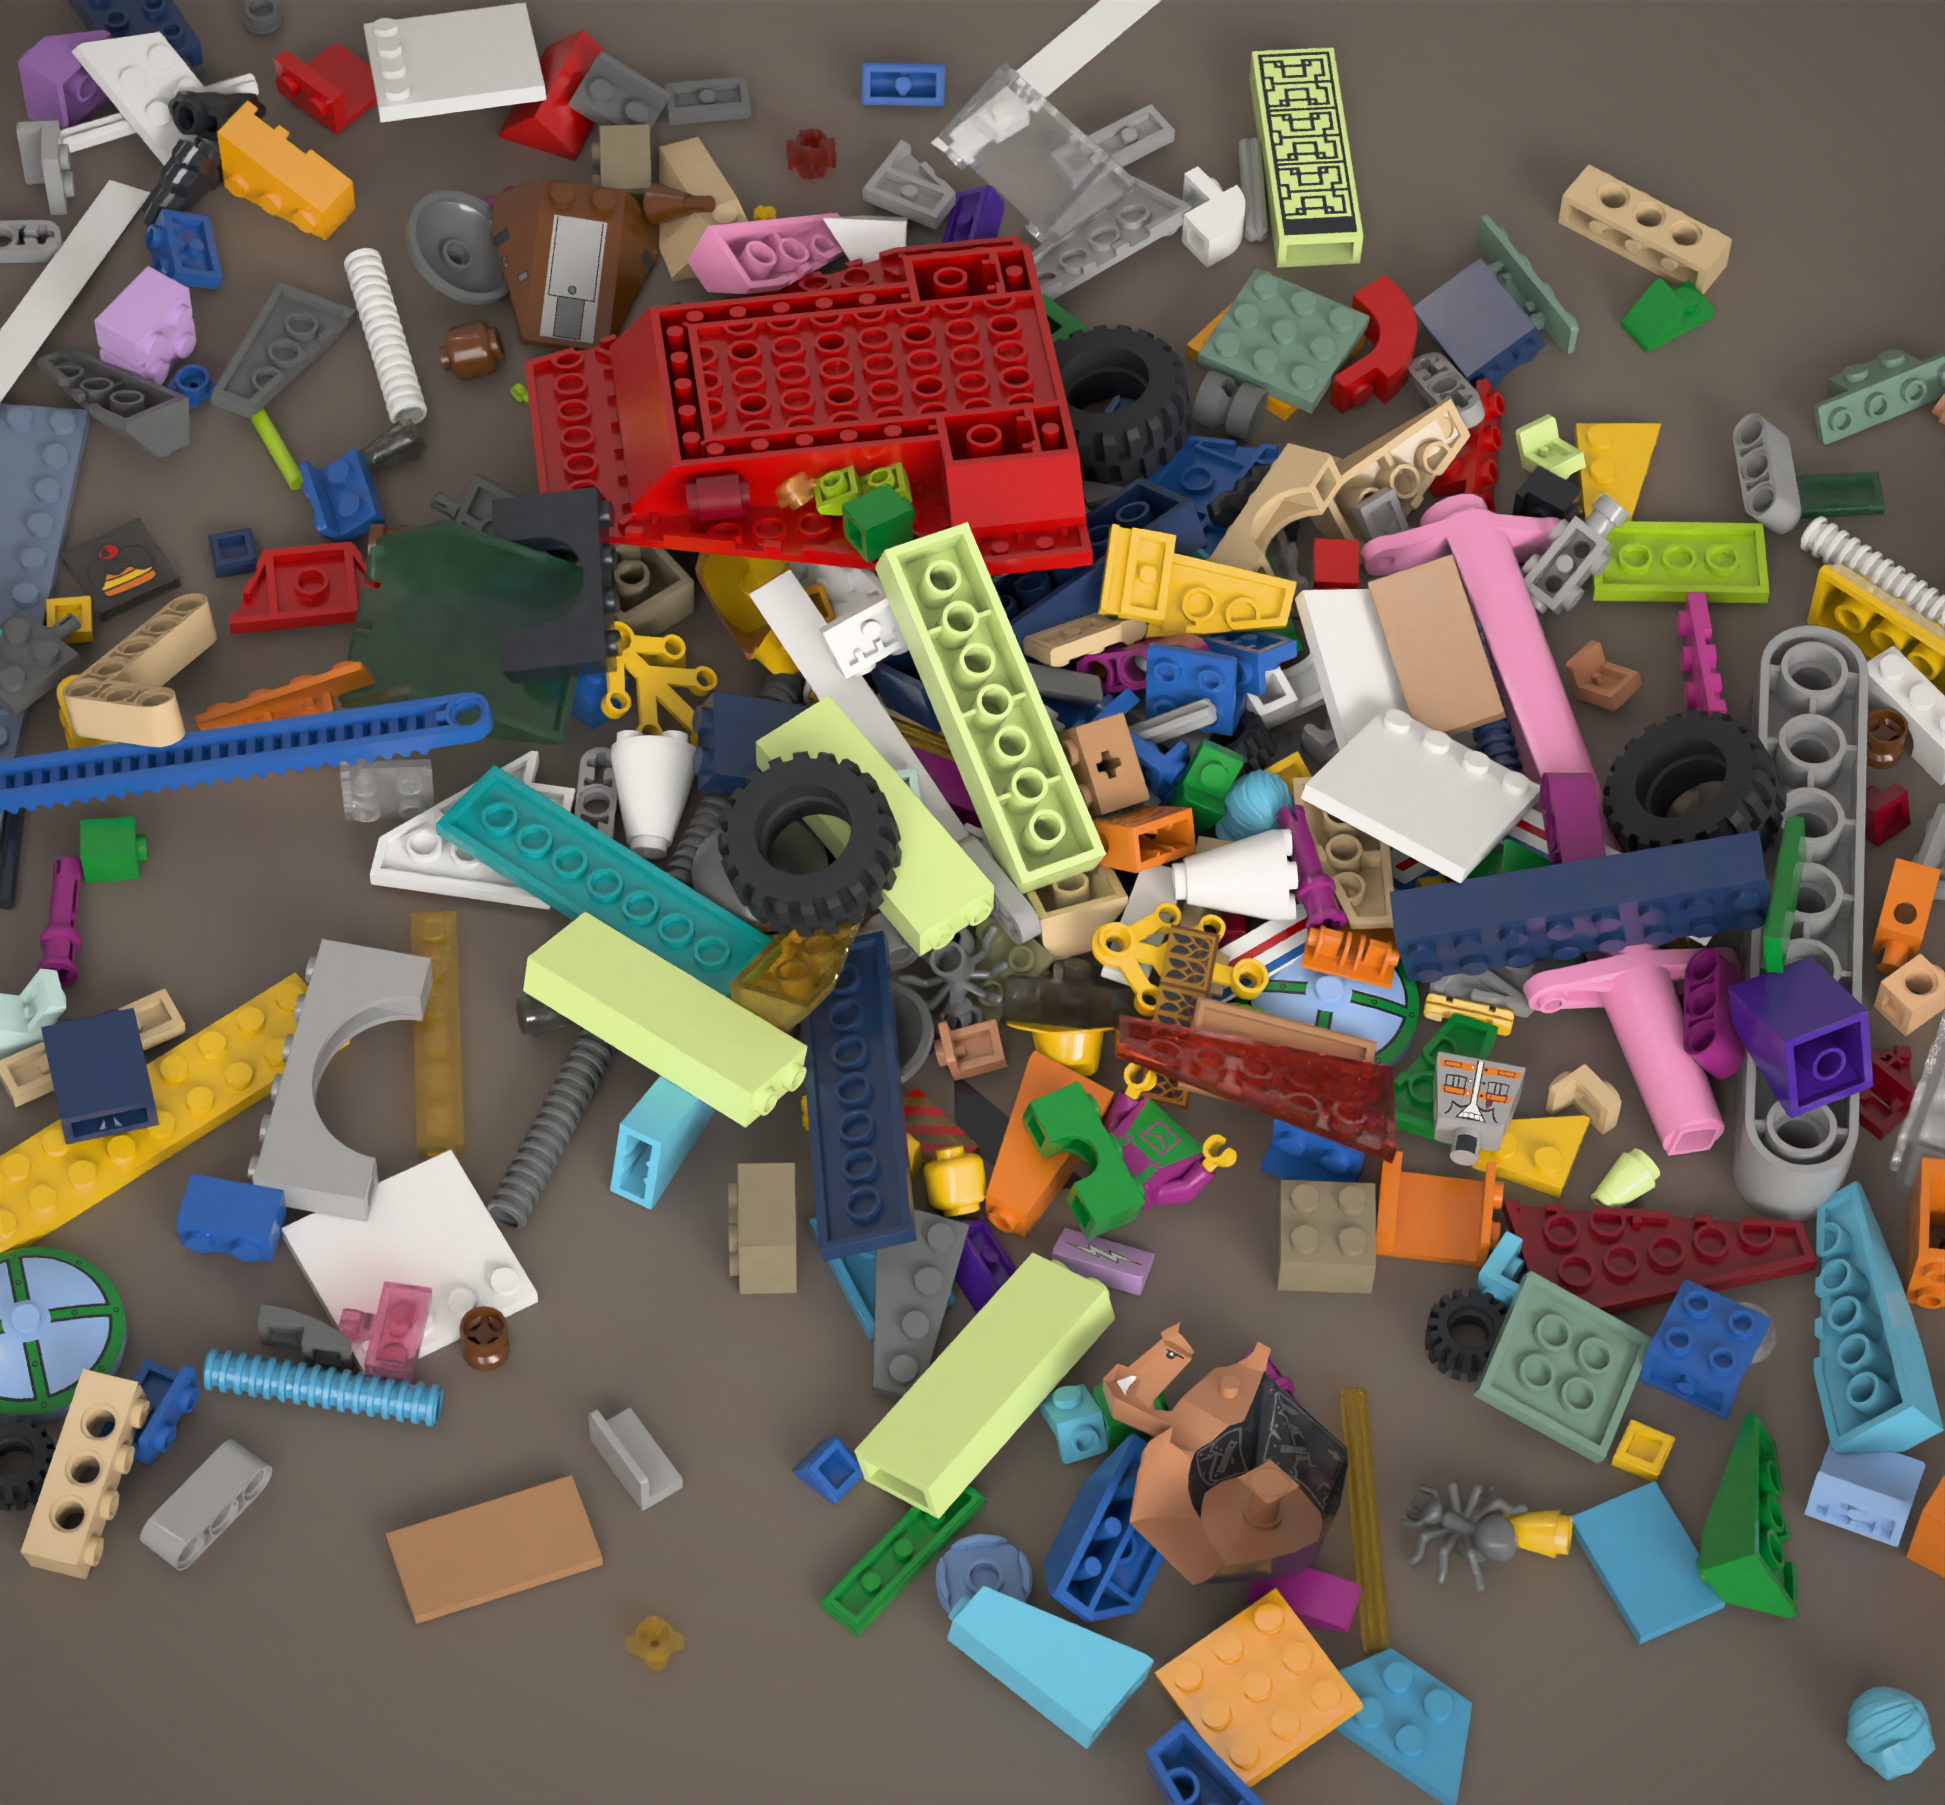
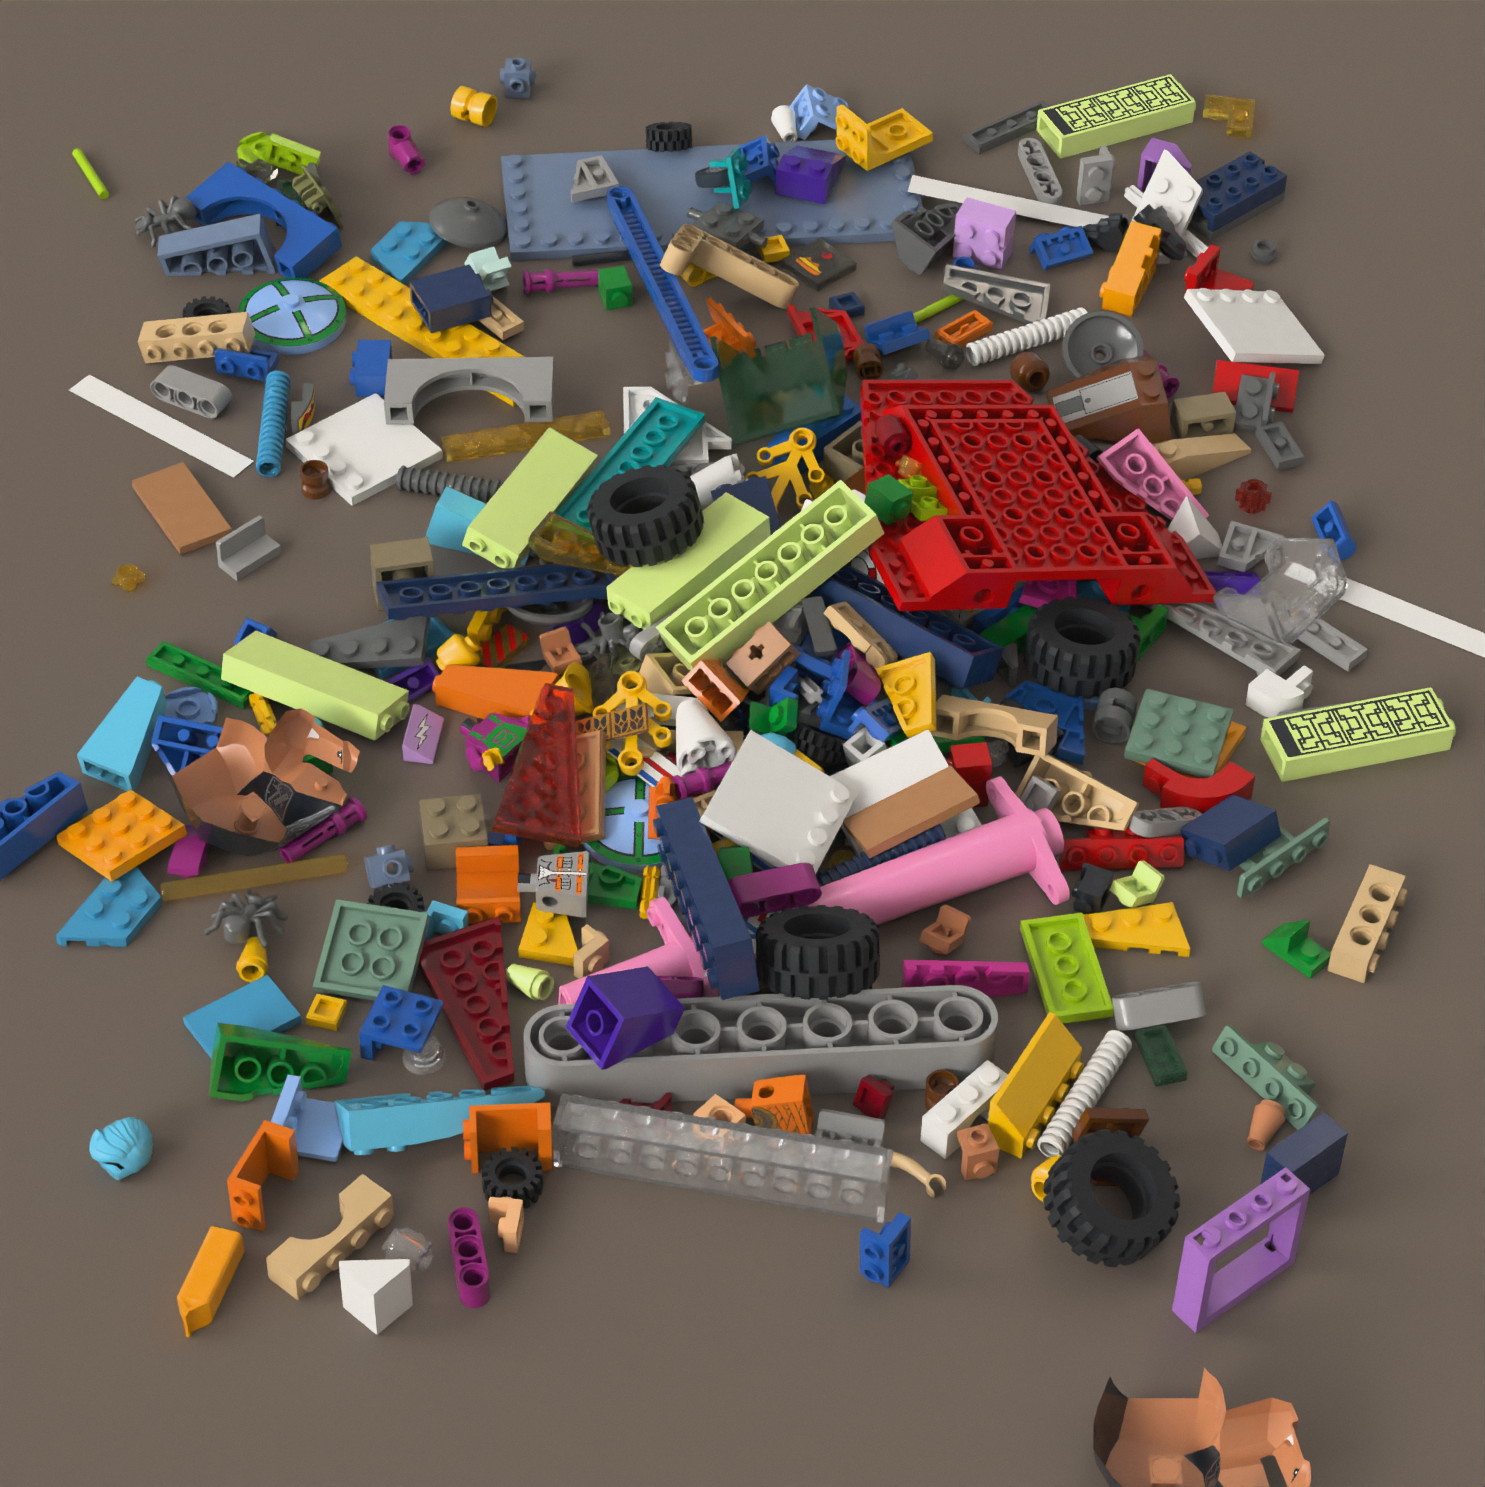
camera: 80 degrees right, 10 degrees down
(258, 1571) = (161, 426): none -> white sticker
(349, 439) = (967, 332): none -> orange tile
(393, 1331) = (305, 435): clear pink plate -> none
(586, 635) = (794, 413): black arch -> none
(667, 204) = (1173, 427): reddish brown cone -> none
(1020, 1471) = (263, 713): none -> yellow axle
(1072, 1124) = (455, 713): green arch -> none
(1137, 574) = (904, 638): yellow plate -> none
(1392, 1330) = (377, 865): none -> sand blue brick
(1561, 561) = (1035, 895): light grey brick -> none
(1784, 895) = (732, 989): green tile -> none

